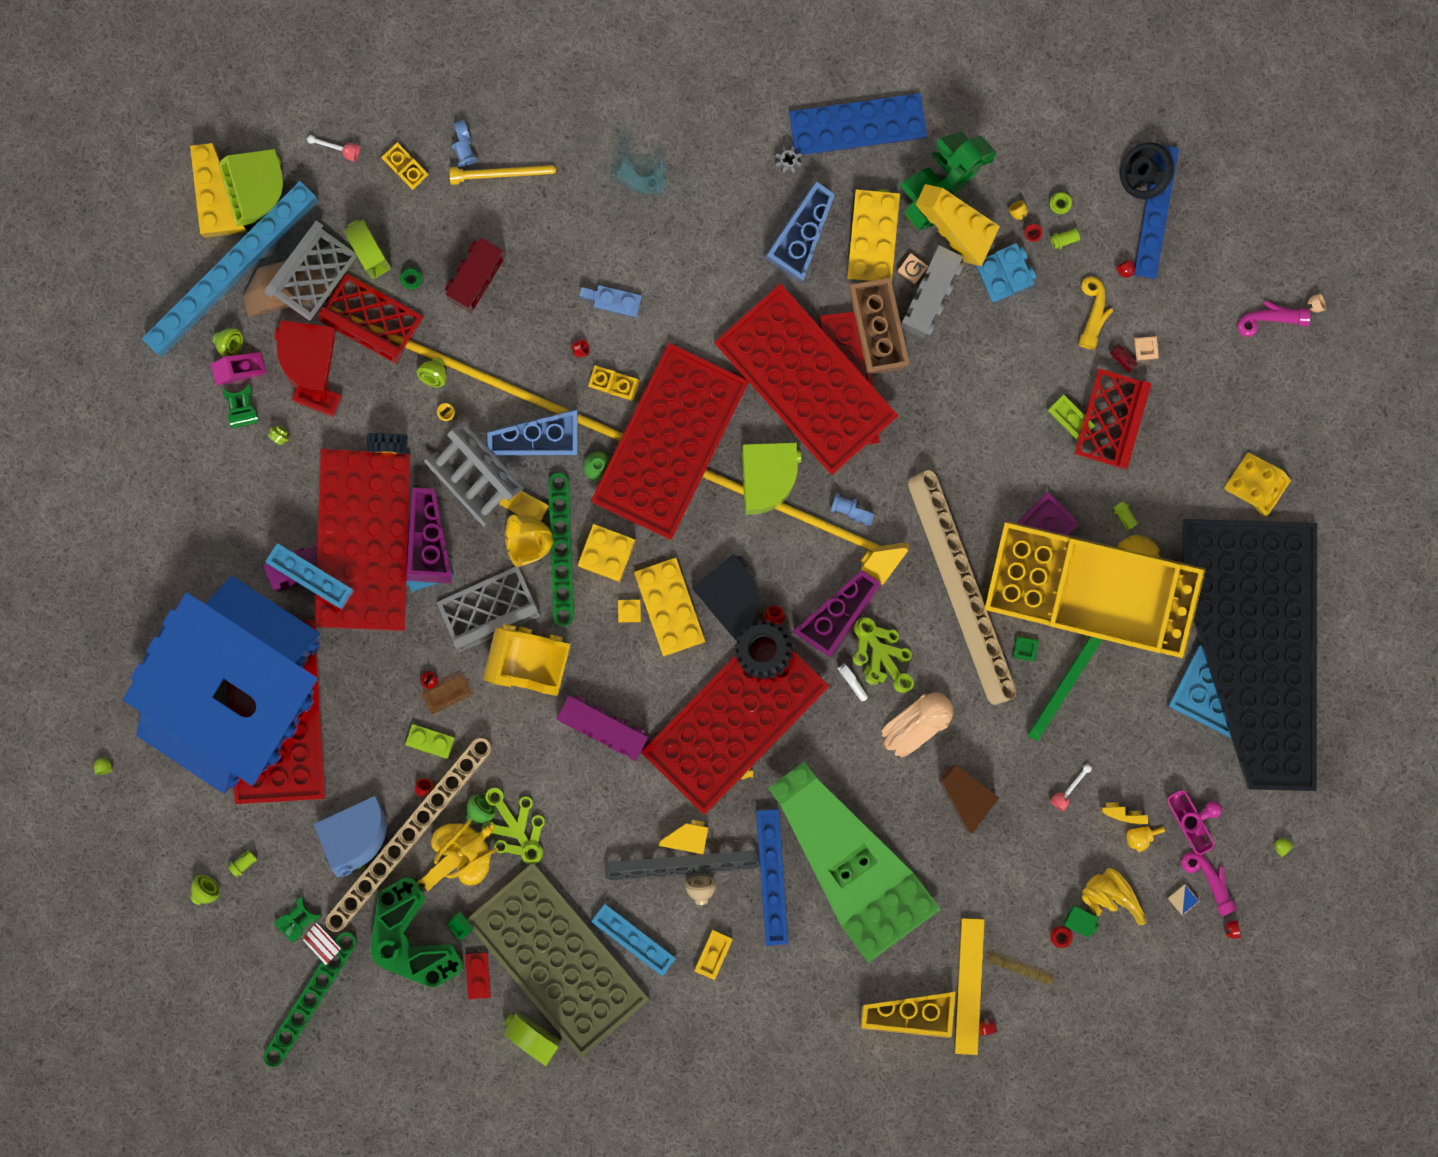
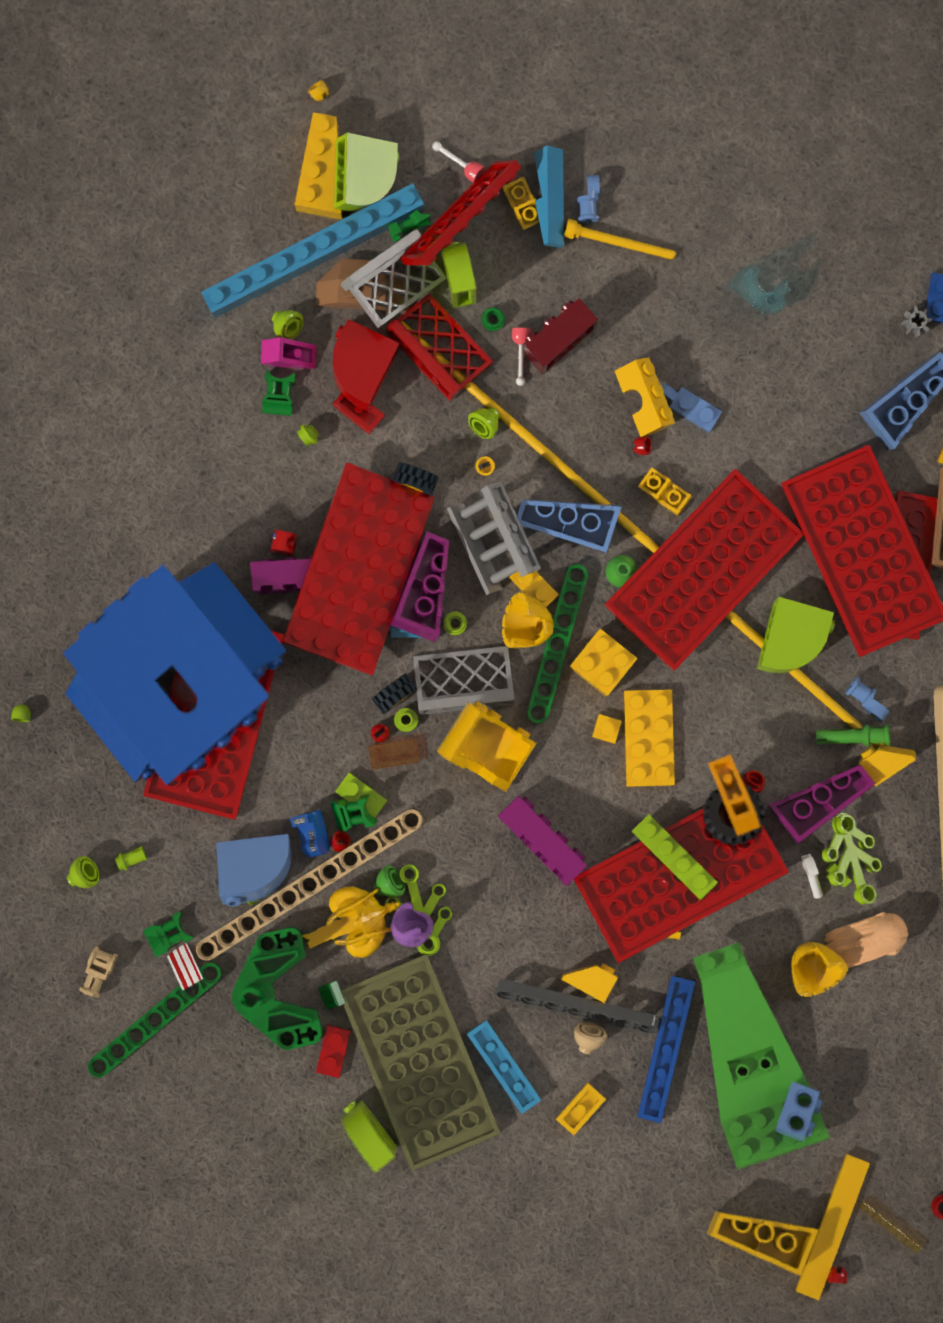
camera: 25 degrees right, 0 degrees up
(188, 123) = (318, 89): none -> yellow hinge
(245, 972) = (98, 970): none -> tan connector
(289, 538) = (284, 543): none -> red leg
(309, 576) = (294, 588): dark azure plate -> none
(312, 214) = (415, 221): none -> green piece
(349, 196) = (456, 217): none -> red plate
(396, 788) = (312, 833): none -> blue leg
(420, 765) = (344, 818): none -> green piece
(429, 161) = (551, 204): none -> dark azure slope
(429, 640) = (394, 693): none -> black wheel
(438, 286) = (519, 336): none -> hinge
(455, 660) = (413, 723): none -> lime plate
(464, 553) = (455, 615): none -> lime plate
(510, 842) = (411, 926): none -> medium lavender cap
(581, 315) = (655, 412): none -> yellow arch
(724, 705) = (674, 857): none -> lime plate
(730, 595) = (712, 739): black brick -> none
(756, 633) = (734, 795): none -> light orange slope
(858, 543) = (865, 735): none -> bright green pin
(881, 763) = (816, 968): none -> yellow hair
(898, 894) = (793, 1110): none -> medium blue brick
(967, 796) = (894, 1033): reddish brown slope -> none

